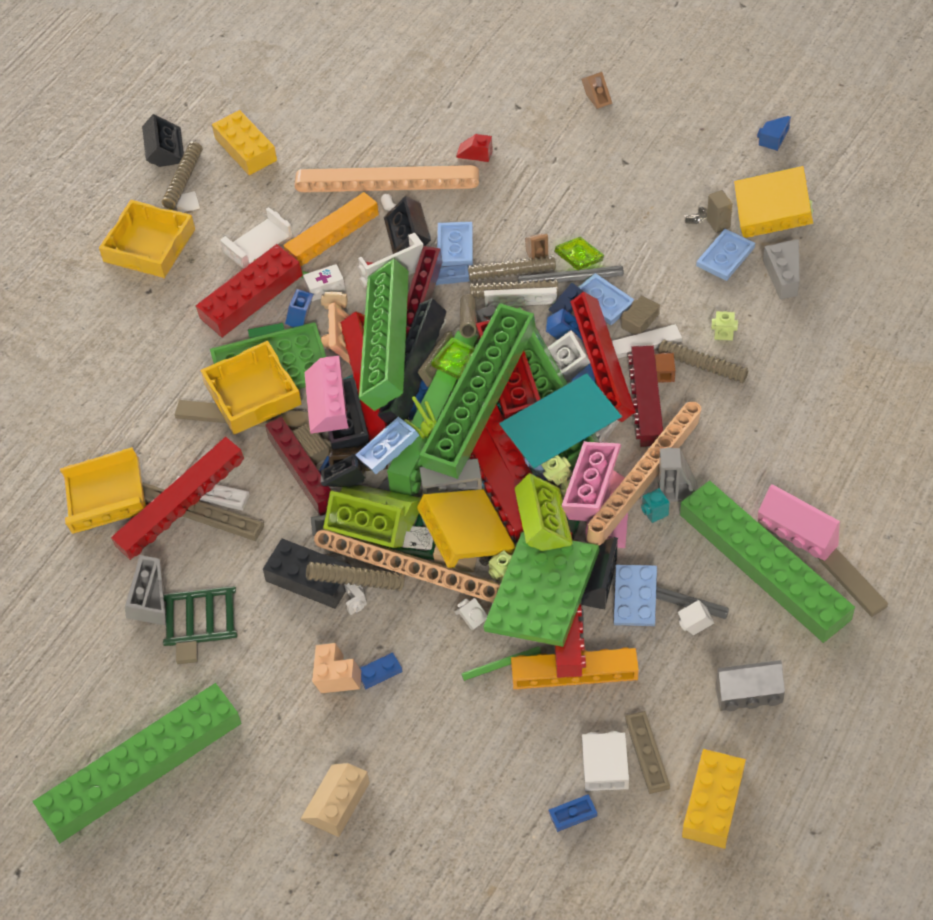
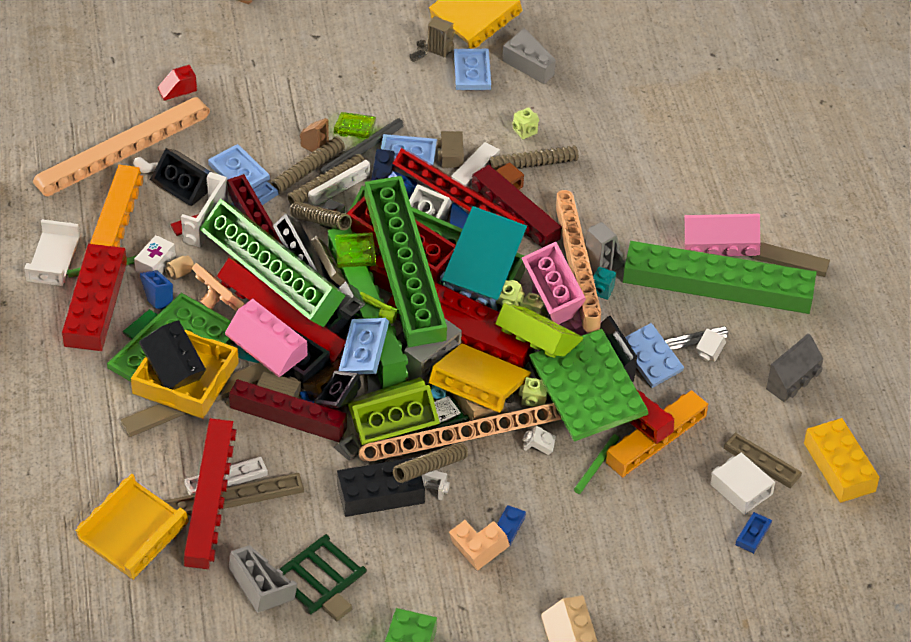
camera: 45 degrees left, 5 degrees down
(244, 370) = (173, 356): none -> black slope
(412, 390) = (352, 301): none -> dark grey brick

